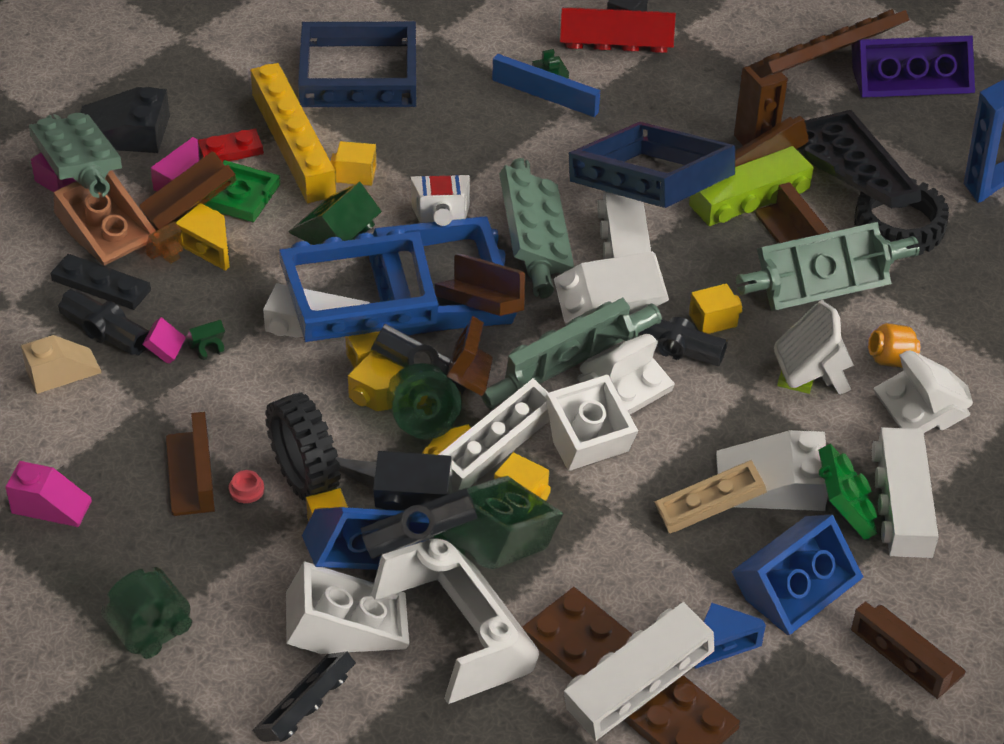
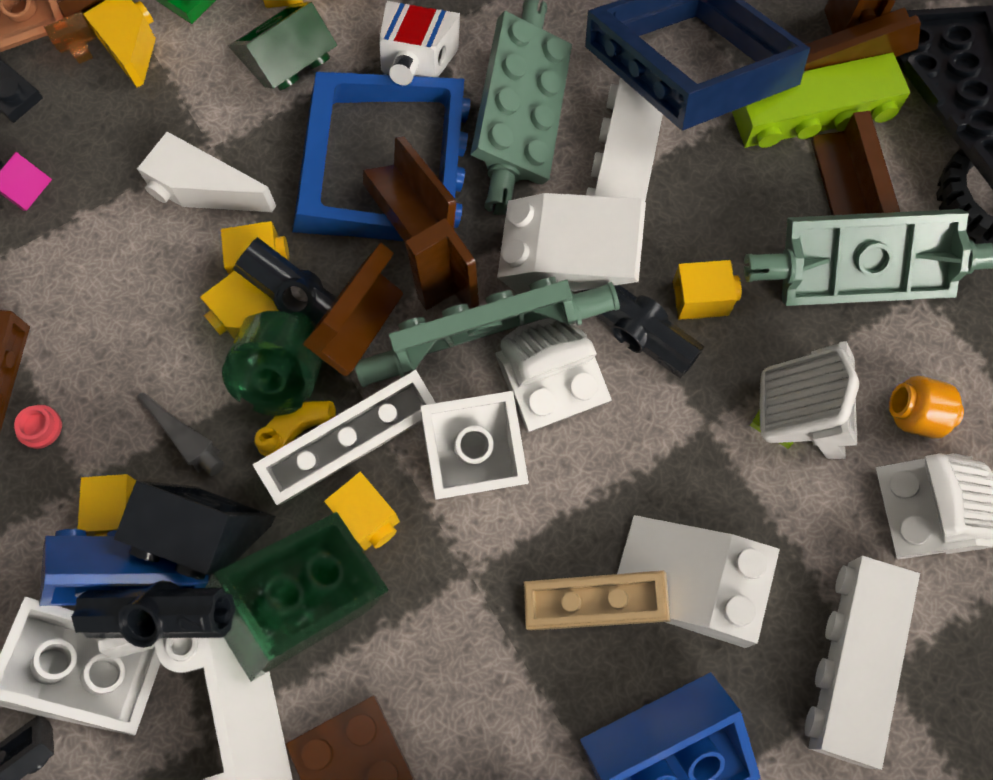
camera: 20 degrees right, 25 degrees up
(206, 335) = (69, 187): dark green tile -> none
(302, 445) = (89, 407): black tyre -> none
(364, 317) = (249, 219): blue windscreen -> none
(529, 311) = (442, 266): none -> reddish brown panel
(848, 490) = (779, 663): green plate -> none

